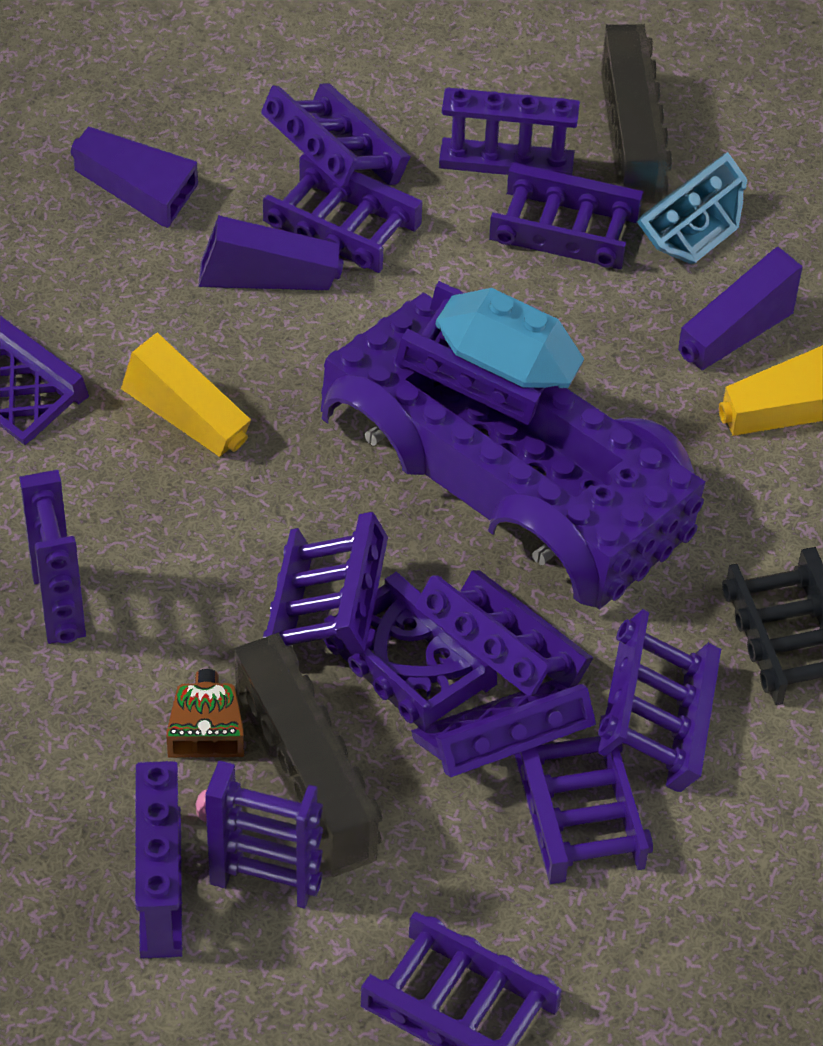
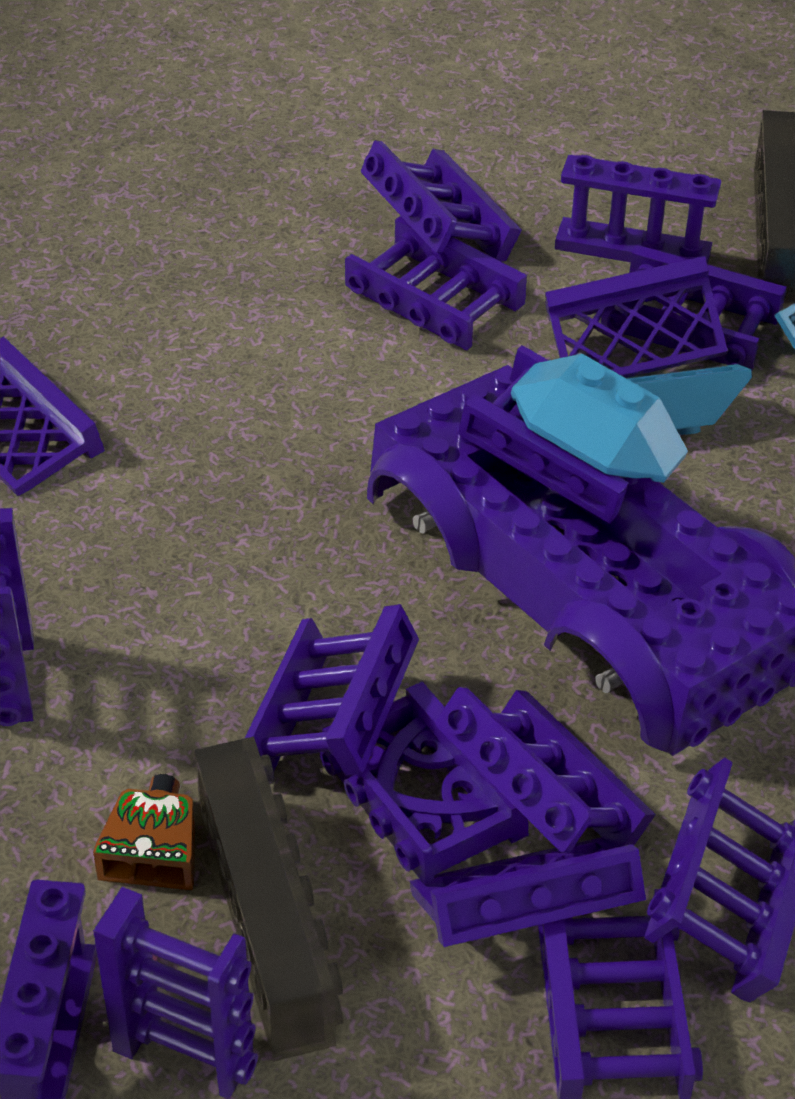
camera: 10 degrees right, 5 degrees down
(136, 173) = (212, 224): dark purple slope -> none
(184, 396) = (209, 457): yellow slope -> none
(267, 258) = (338, 320): dark purple slope -> none
(518, 209) = (633, 289): none -> dark purple fence
(575, 300) = (698, 395): none -> dark azure wedge

